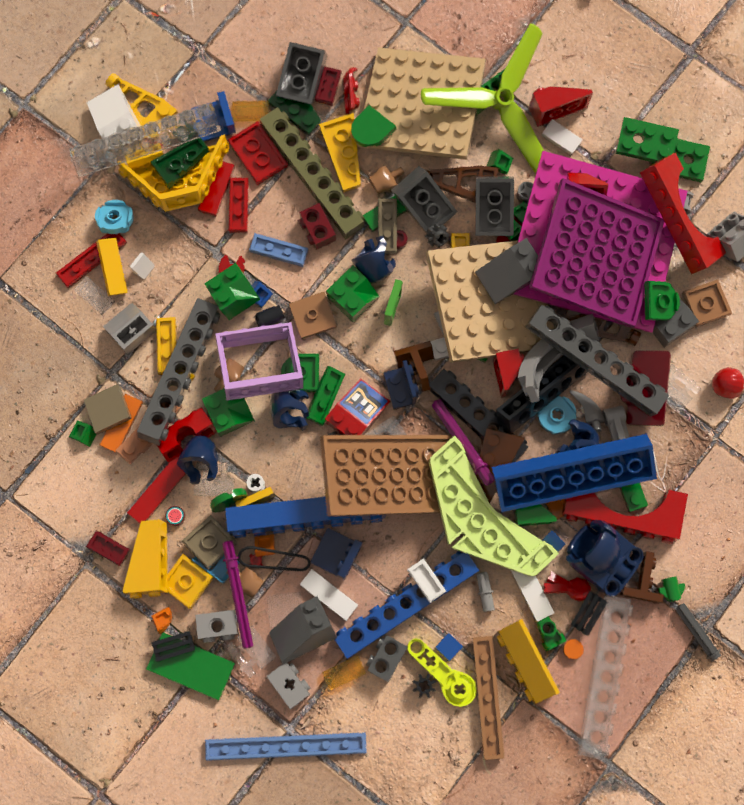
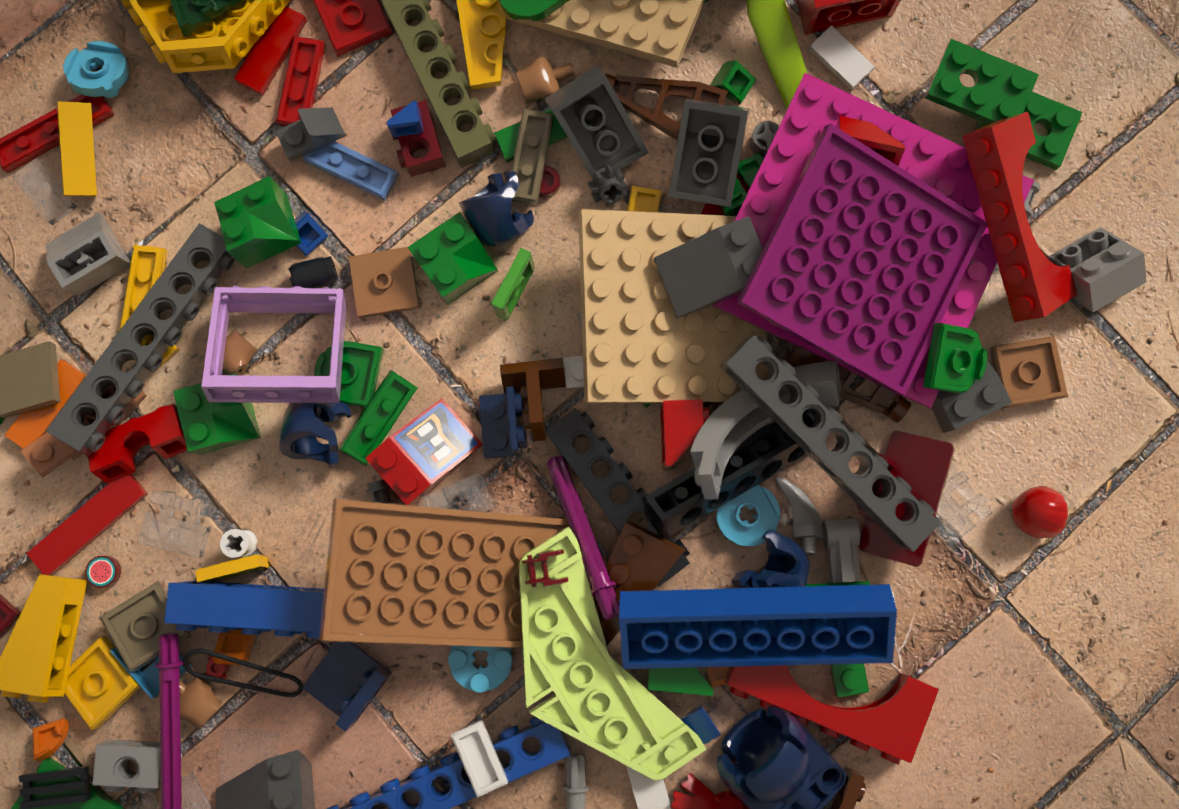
camera: 15 degrees right, 5 degrees up
(142, 266) = (127, 156): white slope -> none
(202, 450) = (154, 479): dark blue piece -> none
(224, 264) = (283, 179): red piece -> none
(226, 500) = (175, 568): green tile -> none
(251, 234) = (313, 131): none -> dark grey slope
(312, 217) = (406, 121): none -> blue slope
(329, 594) = (323, 745): white tile -> none
(418, 538) = (478, 678): none -> medium azure plate
(443, 454) = (542, 557): none -> dark red piece

